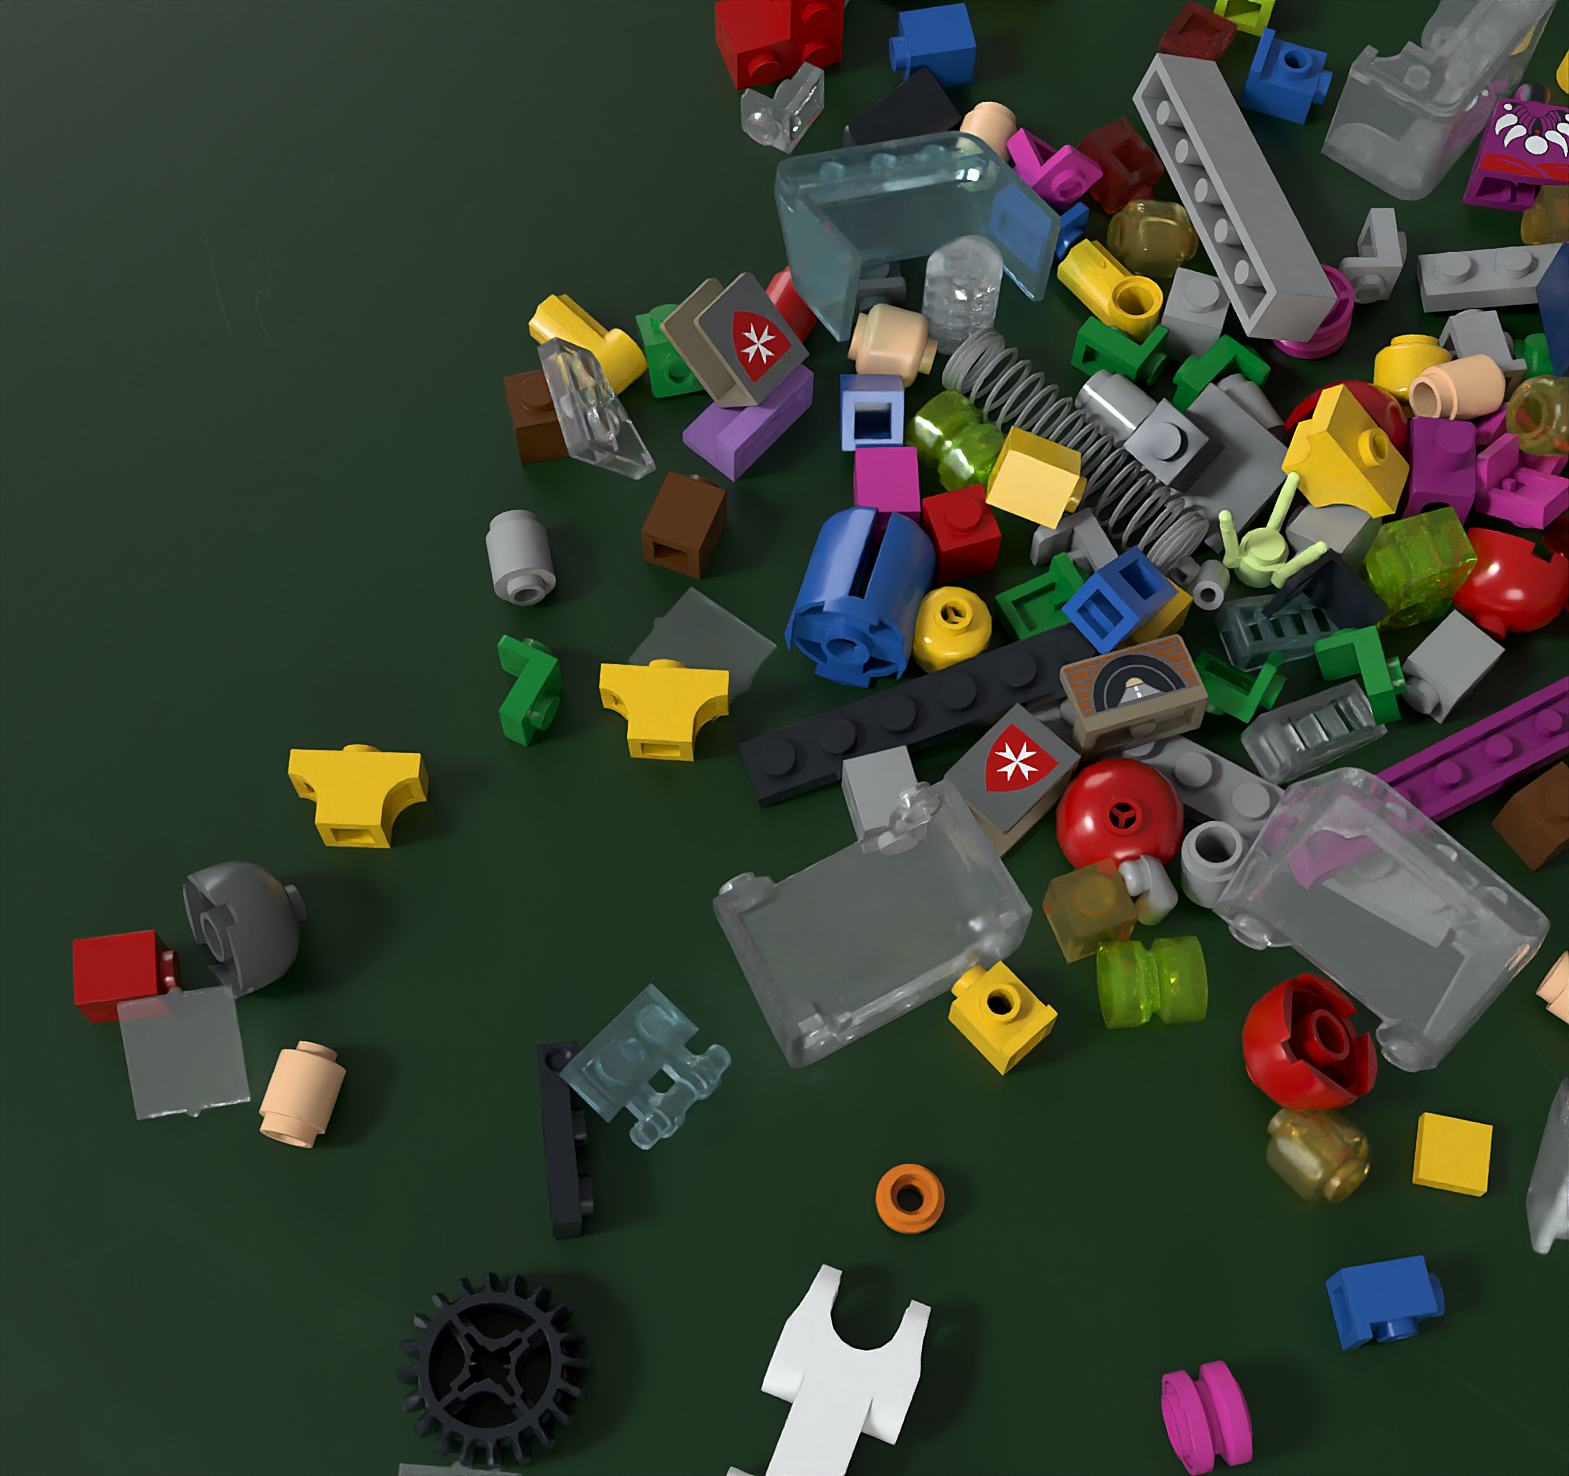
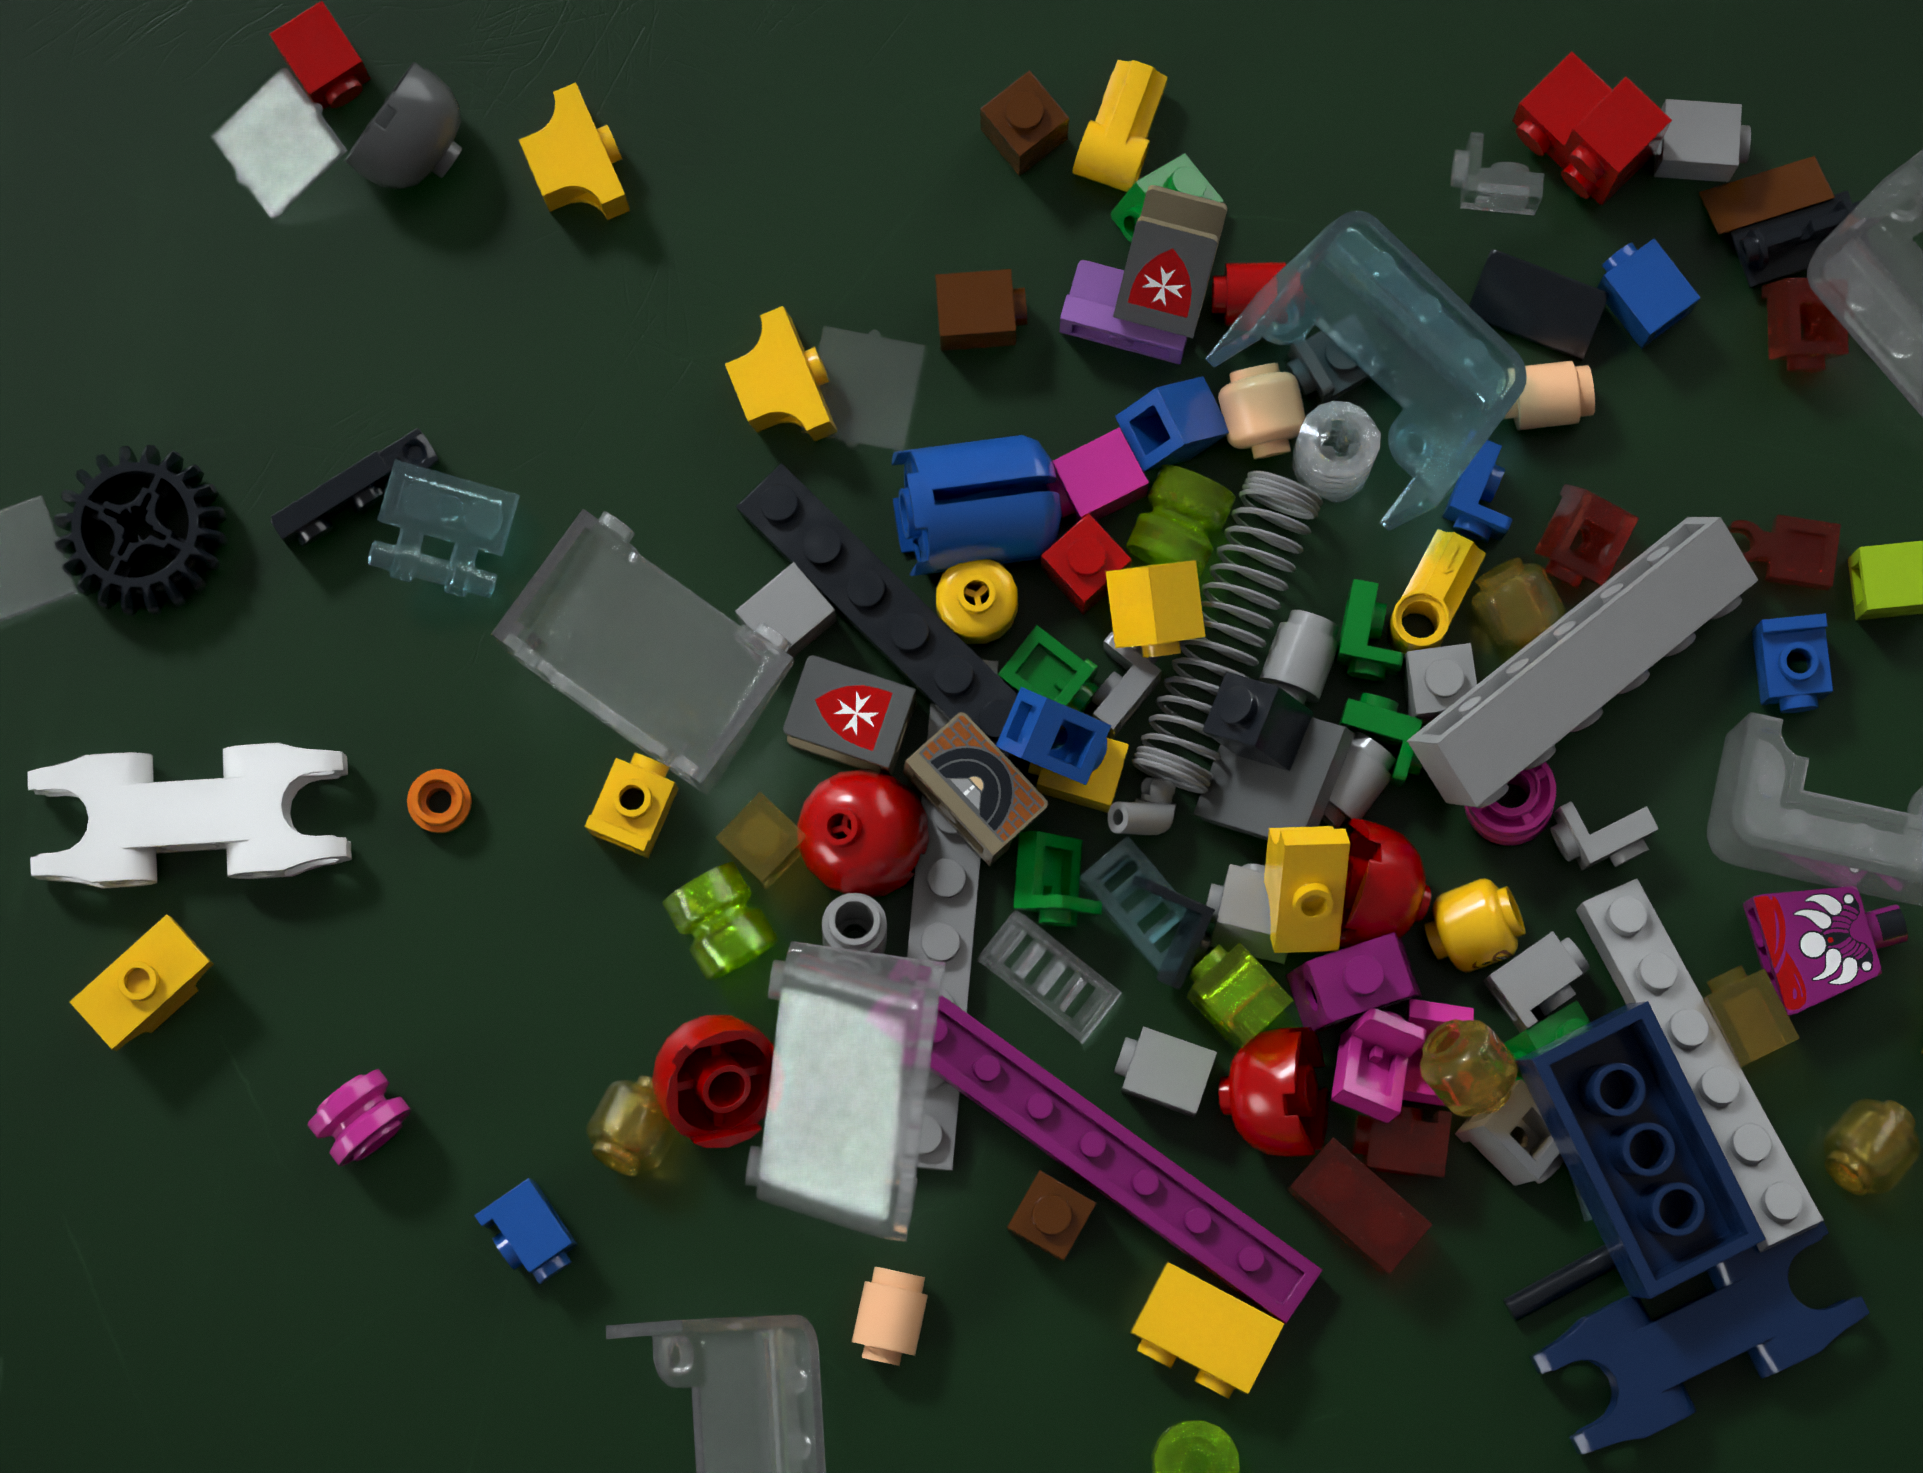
camera: 70 degrees right, 15 degrees up
(301, 1094) = (290, 257): light nougat brick -> none
(520, 558) = (871, 179): light grey brick -> none
(534, 695) = (735, 262): green bracket -> none
(590, 412) = (1034, 167): clear wing -> none
(1053, 174) = (1540, 469): dark pink bracket -> none
(1151, 880) = (808, 880): light grey arm -> none
(1264, 551) = (1208, 850): yellowish green plant -> none
(1360, 651) = (1122, 1003): green bracket -> none
(1452, 1154) = (693, 1246): yellow tile -> none
(1458, 389) = (1453, 967): light nougat brick -> none

